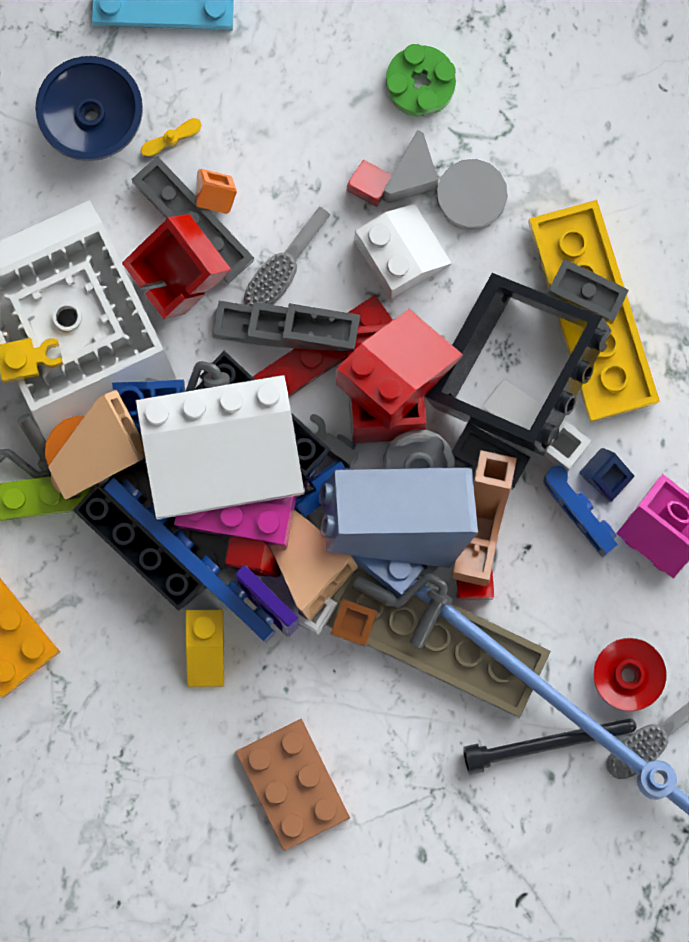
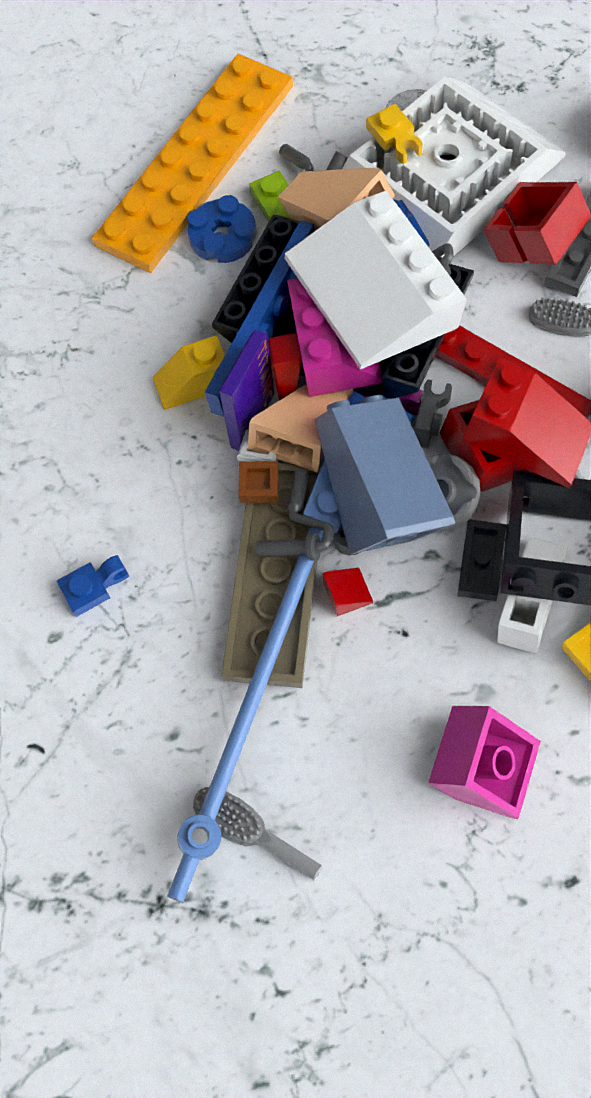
camera: 85 degrees right, 15 degrees down
(57, 577) = (216, 214): none -> blue plate
(286, 326) = (525, 331): dark grey slope -> none
(292, 784) = (87, 495): nougat plate -> none
(387, 812) = (87, 587): none -> blue plate
(478, 757) = (166, 652): black piece -> none
(491, 490) = (435, 566): nougat arch -> none
(579, 511) = (463, 662): blue plate -> none
(607, 473) = (514, 684): dark blue slope -> none
(648, 671) = (301, 754): red dish -> none

